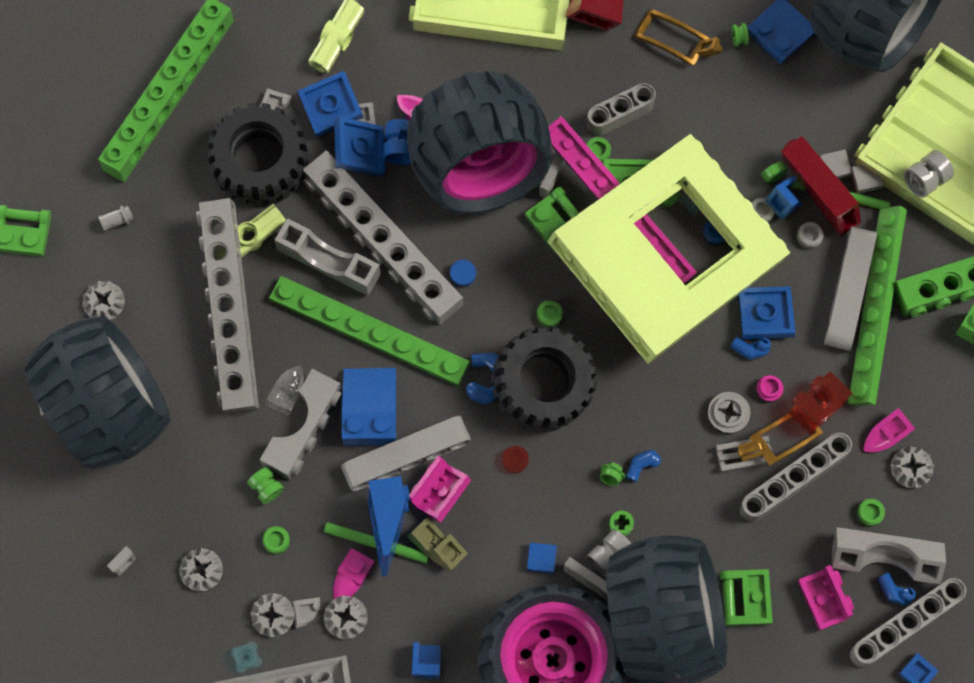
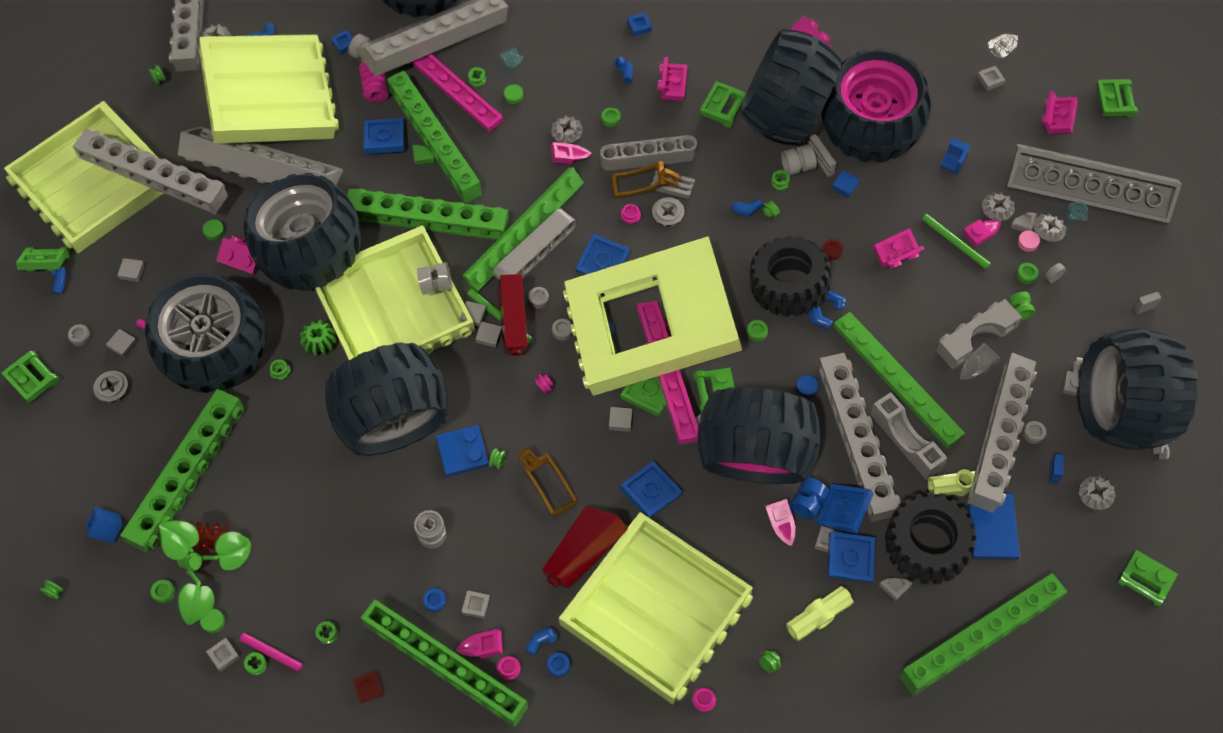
camera: 150 degrees left, 10 degrees down
(116, 218) = (1064, 550): light grey pin -> none
(155, 301) = (1056, 468): none -> blue tile
(176, 425) = (1071, 379): none -> light grey plate
(184, 200) = (995, 531): none -> blue tile
(194, 339) = (1034, 432): none -> light grey tile
(213, 571) = (1084, 283): light grey gear -> none
(243, 550) = (1055, 272): none -> light grey tile
(291, 585) = (1028, 241): none -> bright pink tile
(369, 407) = (922, 324): blue slope -> none
(387, 509) = (944, 237): blue slope -> none
(406, 453) = (910, 282): light grey beam -> none
(438, 547) = (915, 218): olive slope -> none
(566, 79) = (651, 490): none -> blue plate
(600, 148) = (656, 427): bright green tile -> none
(626, 99) = (632, 438): light grey beam -> none
(641, 141) = (620, 419): none -> light grey tile
(742, 136) = (544, 383): none -> dark pink plate
(753, 350) = (629, 242): blue arm -> none
(774, 172) = (537, 346): bright green tile -> none
(783, 200) = (542, 325): blue panel -> none
(812, 414) = (607, 177): clear red brick -> none
(919, 558) = (599, 72): light grey arch -> none
(919, 616) = (629, 47): light grey beam -> none

